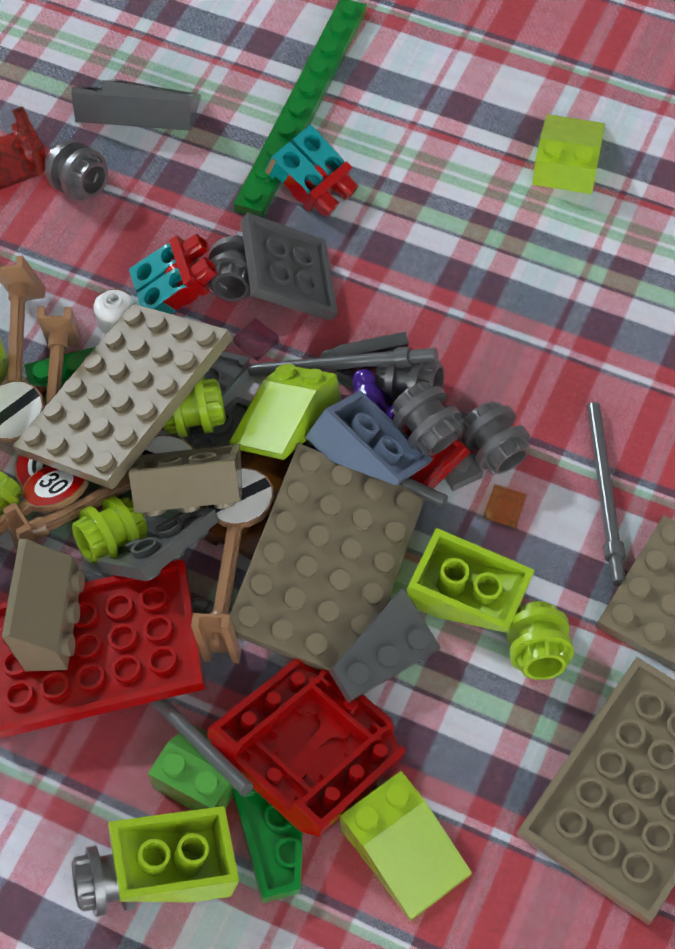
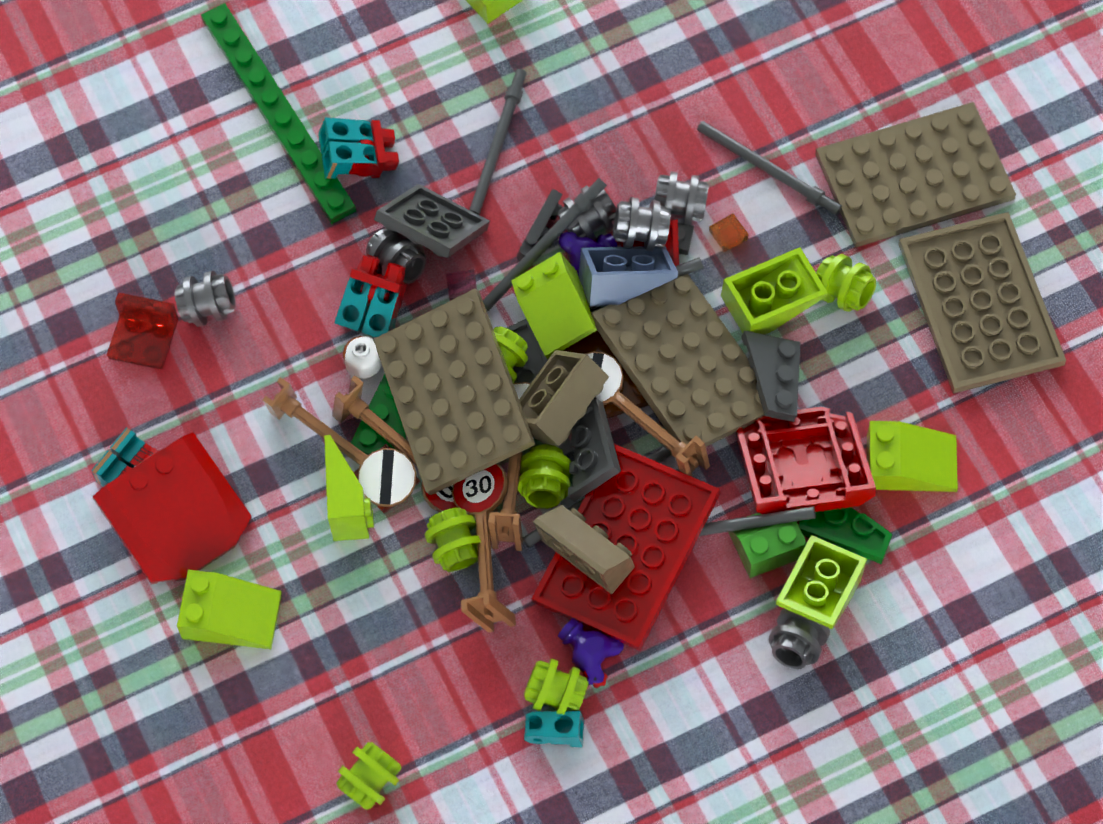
camera: 50 degrees left, 5 degrees up
(135, 105) = (172, 218): dark grey slope -> none
(477, 248) = (512, 96): none -> dark grey bar

